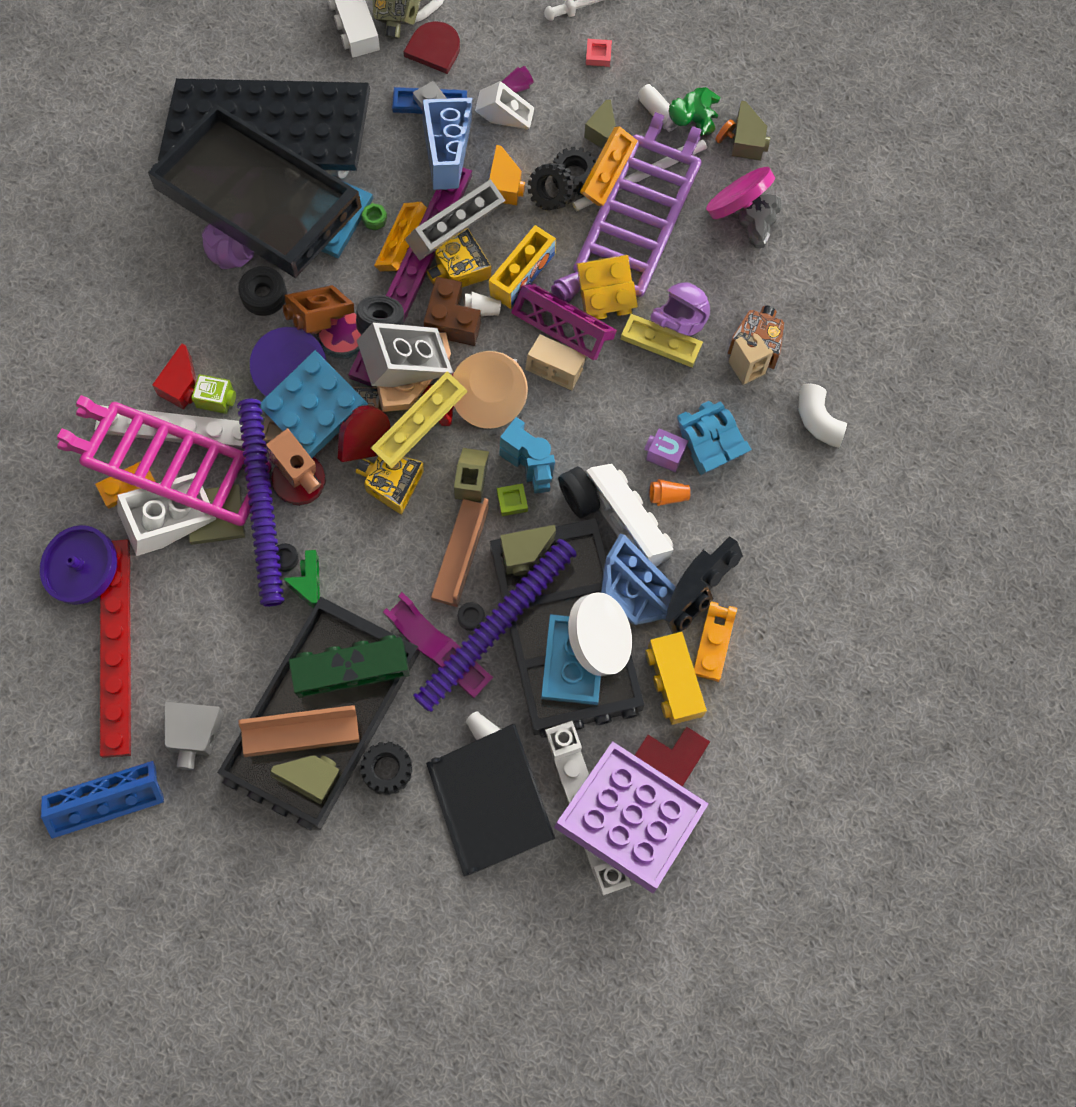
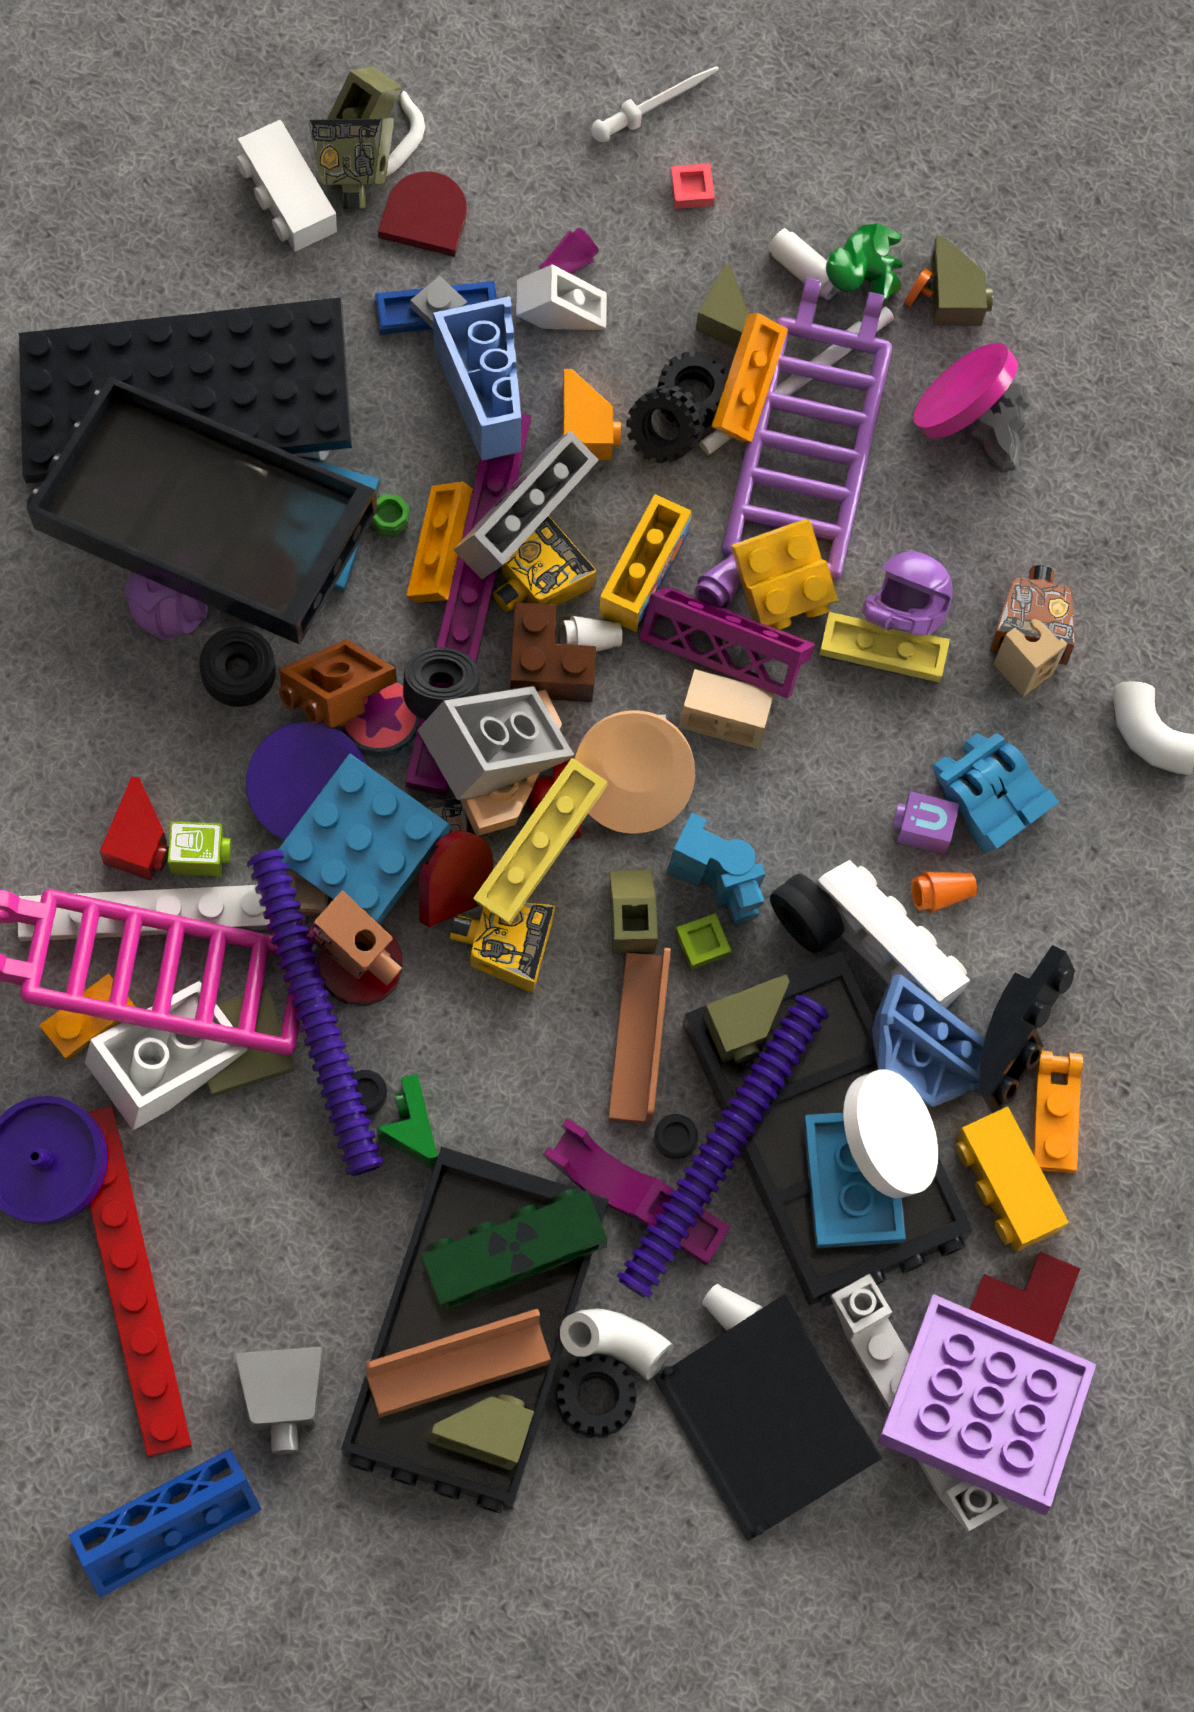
camera: 15 degrees left, 0 degrees up
(405, 732) = (617, 1337): none -> white cylinder

